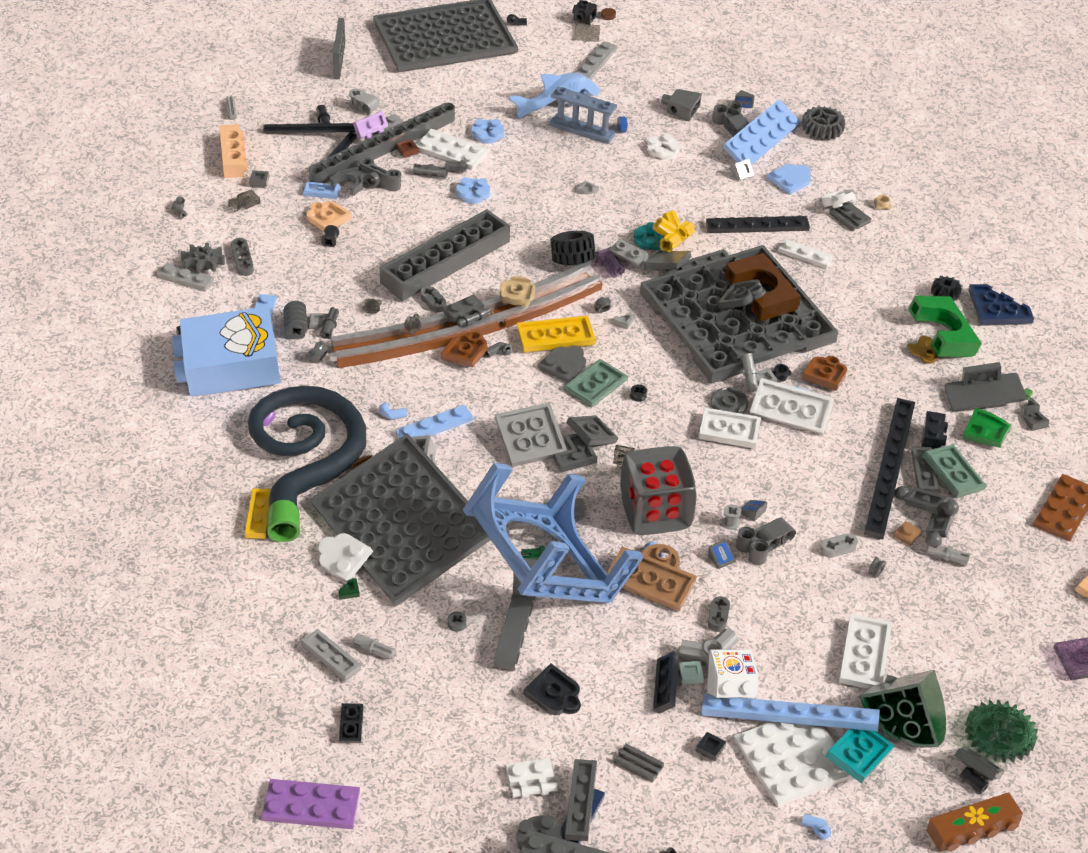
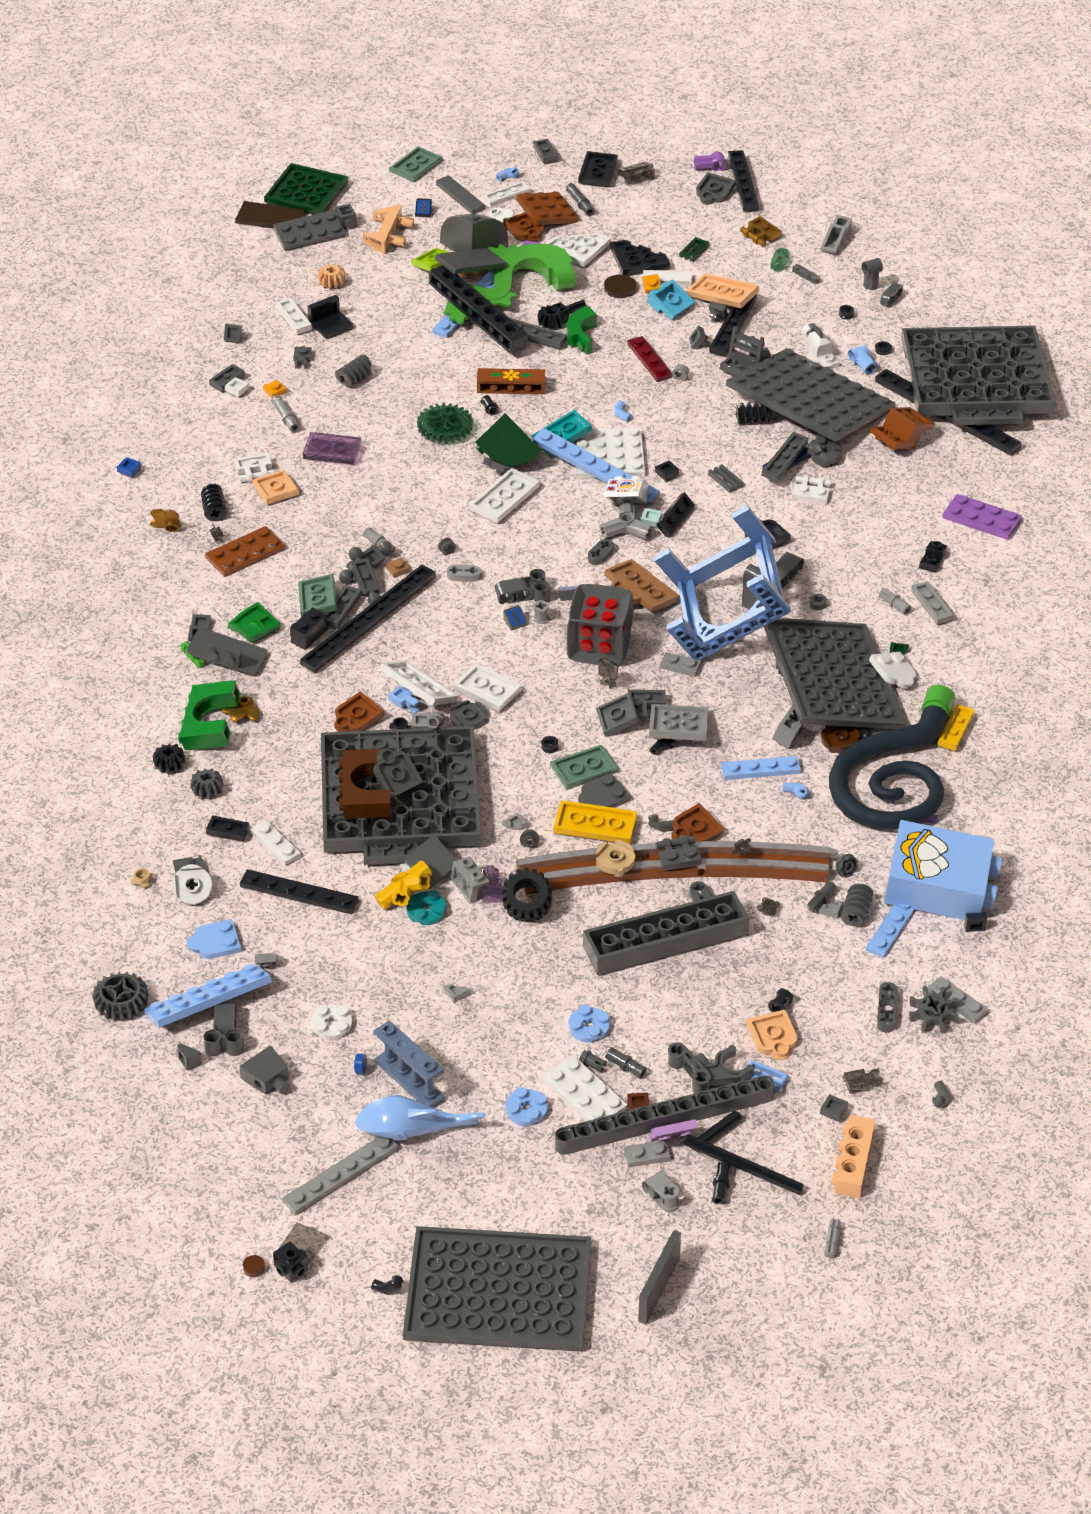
camera: 155 degrees left, 0 degrees up
(851, 251) = (227, 828): none -> black plate
(897, 277) = (206, 783): none -> dark grey gear
(979, 763) = (479, 406): dark grey plate -> none
(998, 308) = (134, 729): dark blue plate -> none

